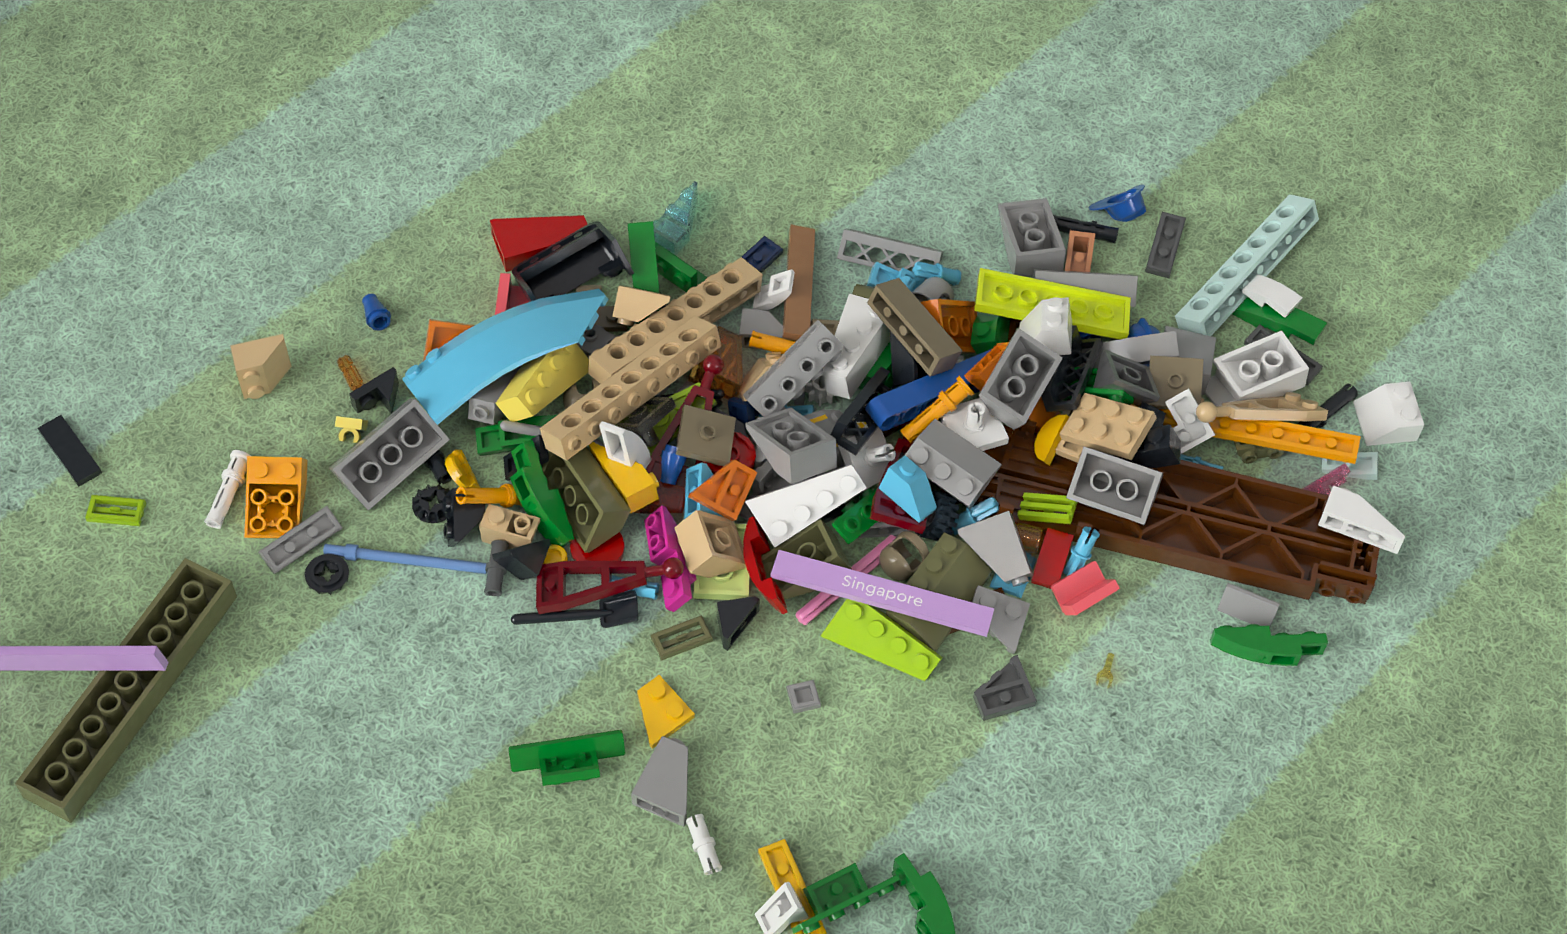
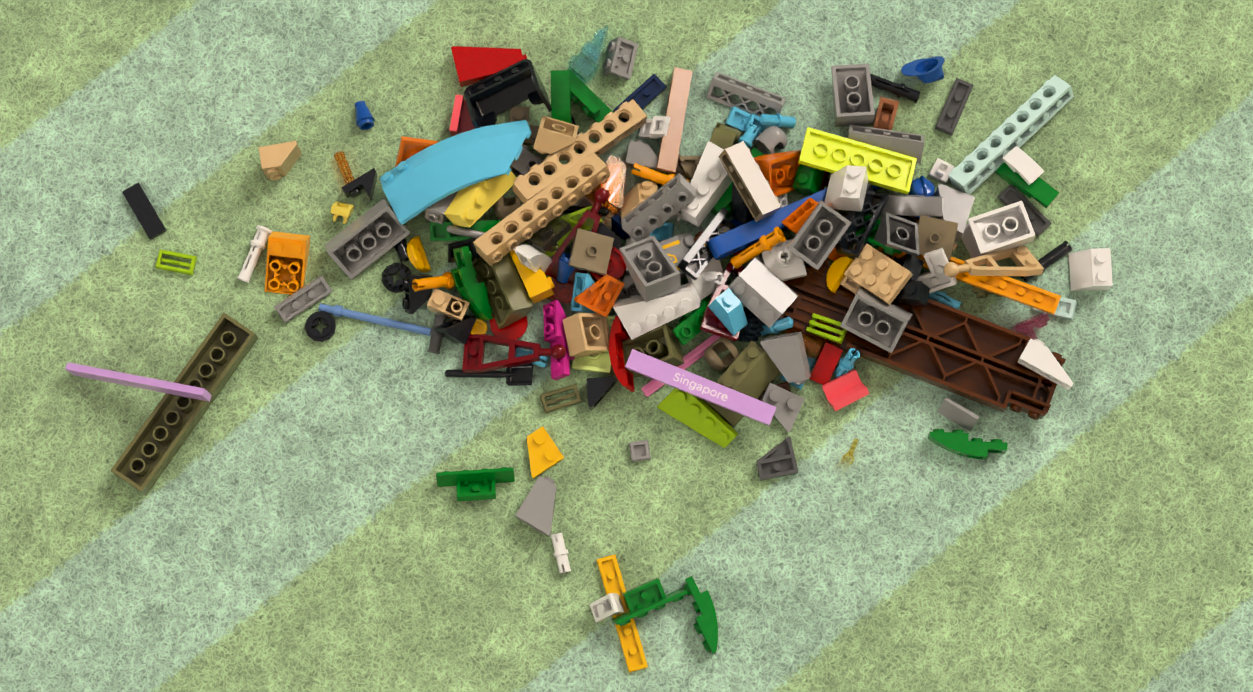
camera: 10 degrees right, 20 degrees up
(717, 220) = (620, 58): none -> light grey bracket
(1163, 315) = (941, 170): none -> white tile

